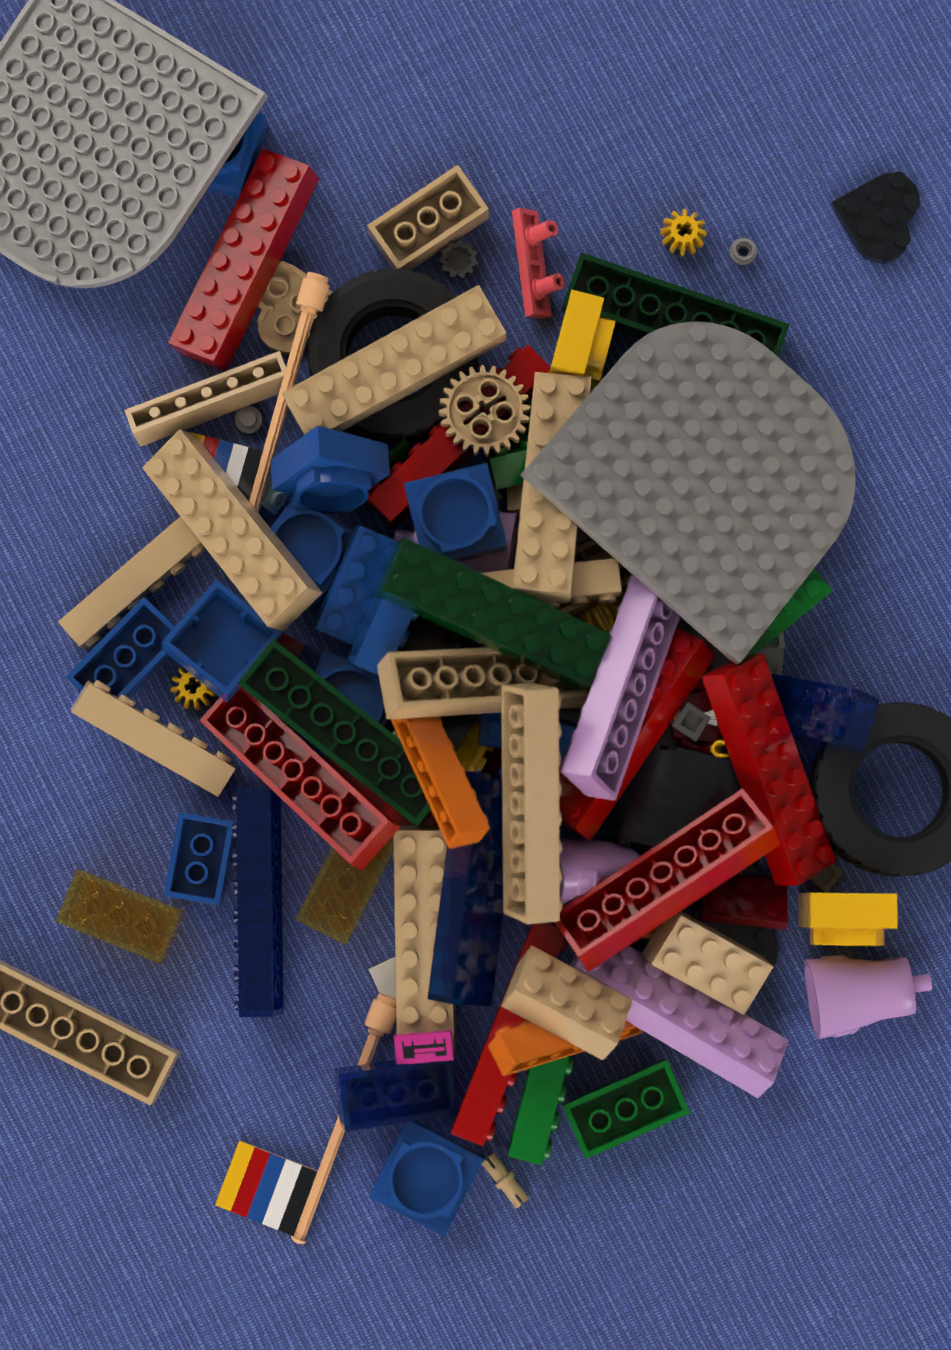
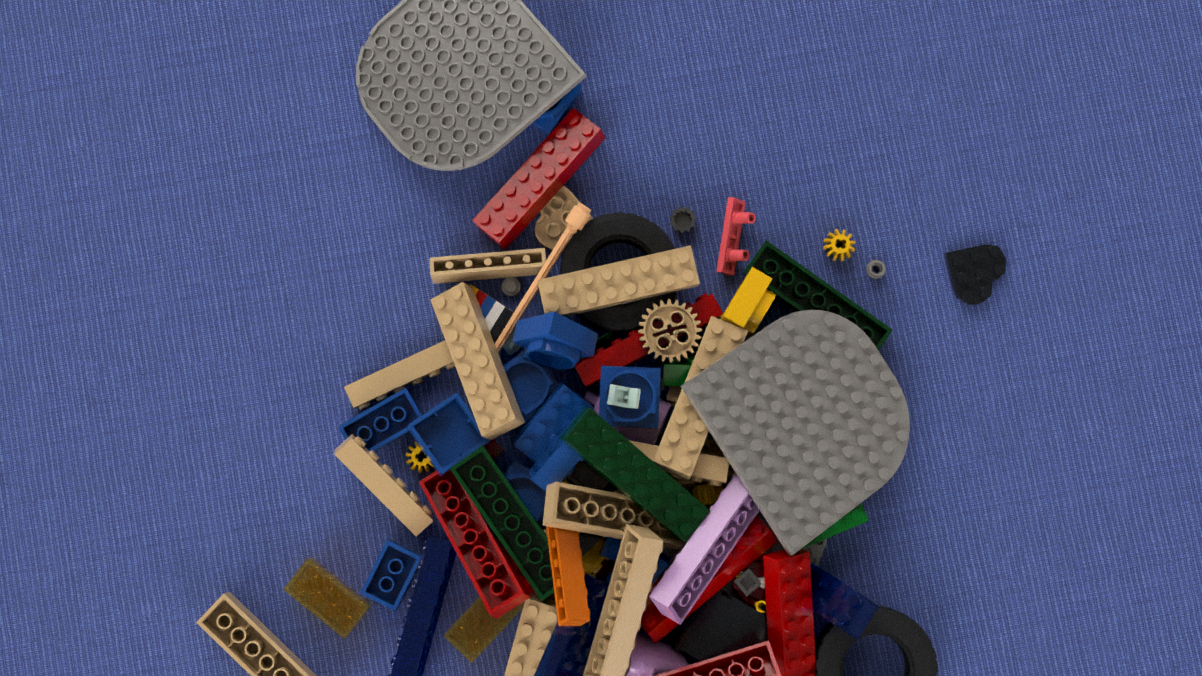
camera: 15 degrees right, 0 degrees up
(428, 220) = (670, 188): tan brick -> none
(447, 514) = (623, 396): none -> light aqua bracket

